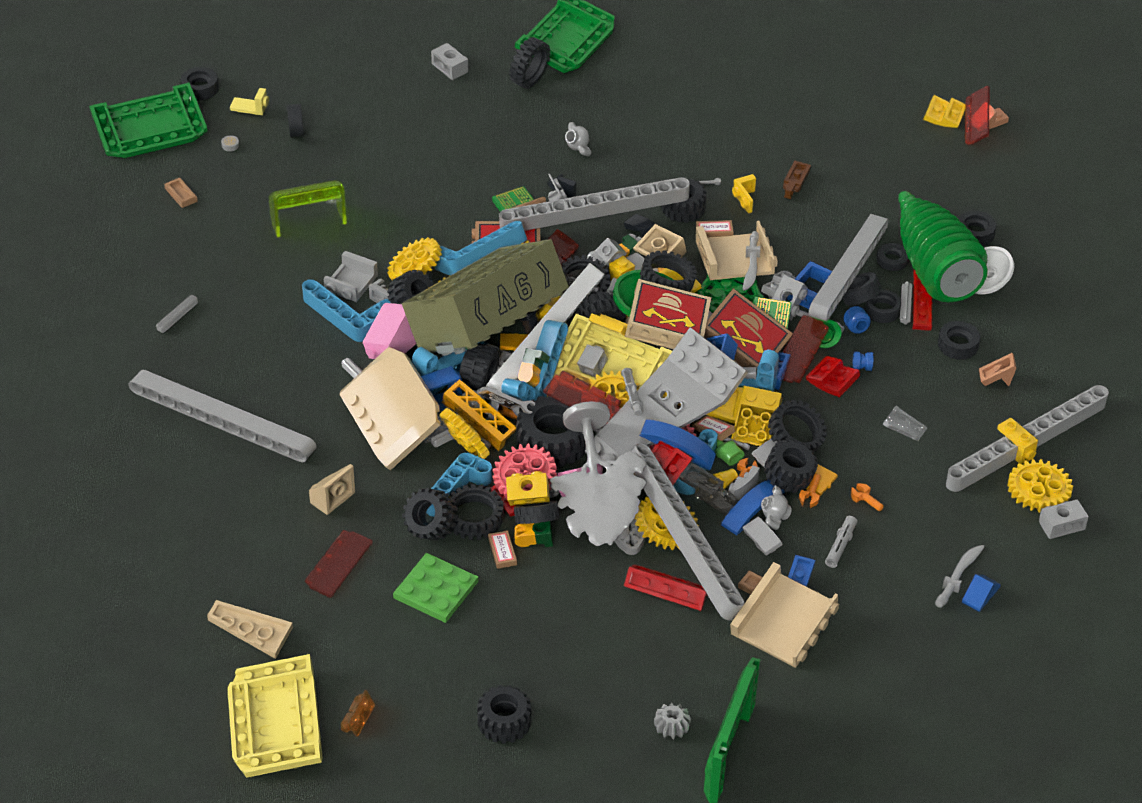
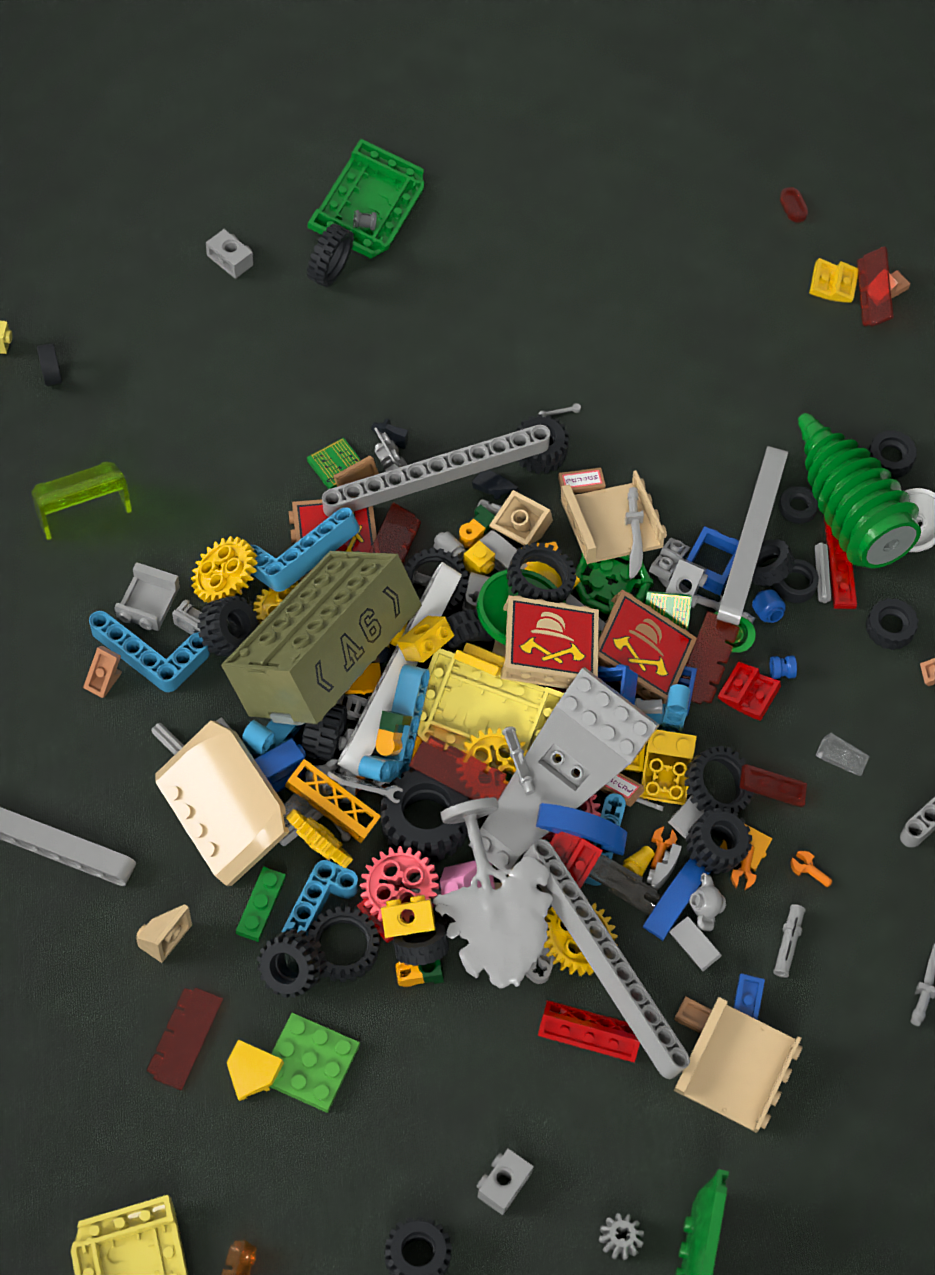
camera: 10 degrees left, 15 degrees up
(252, 627) = (90, 1151): tan wing -> none
(307, 321) = (103, 672): none -> nougat slope
(389, 330) = (206, 688): bright pink slope -> none
(389, 584) = (252, 1069): none -> yellow slope
(412, 481) = (260, 904): none -> green plate
(502, 549) = (383, 995): tile -> none
(561, 45) = (364, 220): none -> dark grey bush
(568, 306) = (425, 638): none -> yellow brick
(578, 138) = (401, 361): light grey piece -> none
(582, 676) = (501, 1196): none -> light grey brick
(592, 360) = (463, 710): light grey brick -> none
(610, 250) = (464, 537): light grey brick -> none
(729, 452) = (639, 818): bright green piece -> none
(741, 188) = (605, 419): yellow bracket -> none
(795, 178) = (670, 396): reddish brown hinge -> none
(842, 436) = (773, 785): none -> clear red tile
(918, 60) = (793, 204): none -> clear red tile

